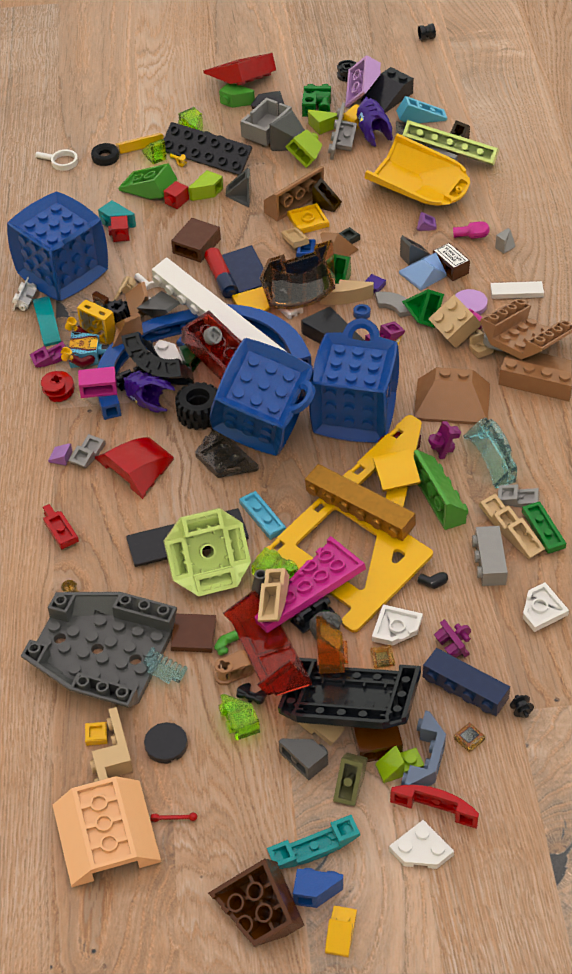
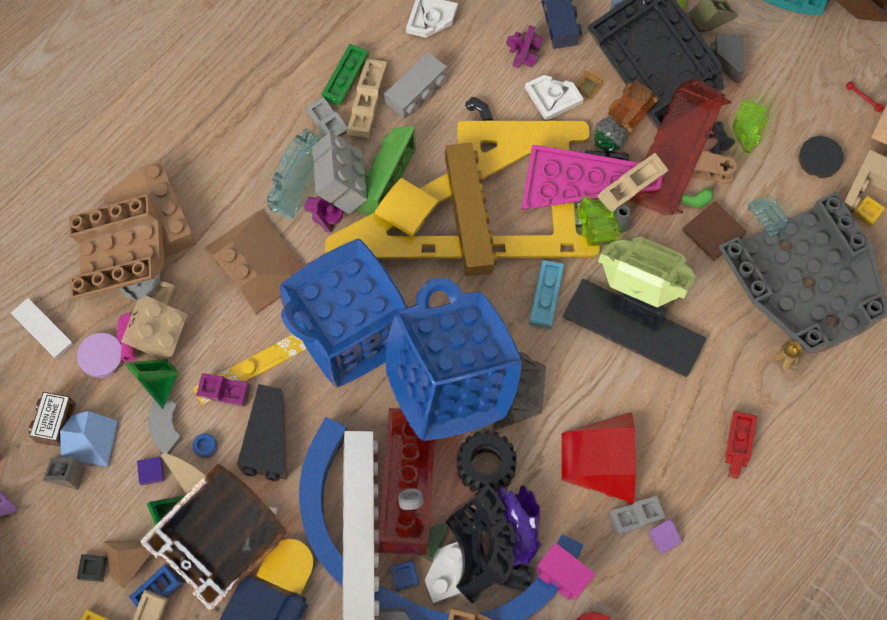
camera: 135 degrees left, 20 degrees up
(456, 454) = (339, 171): none -> light grey piece

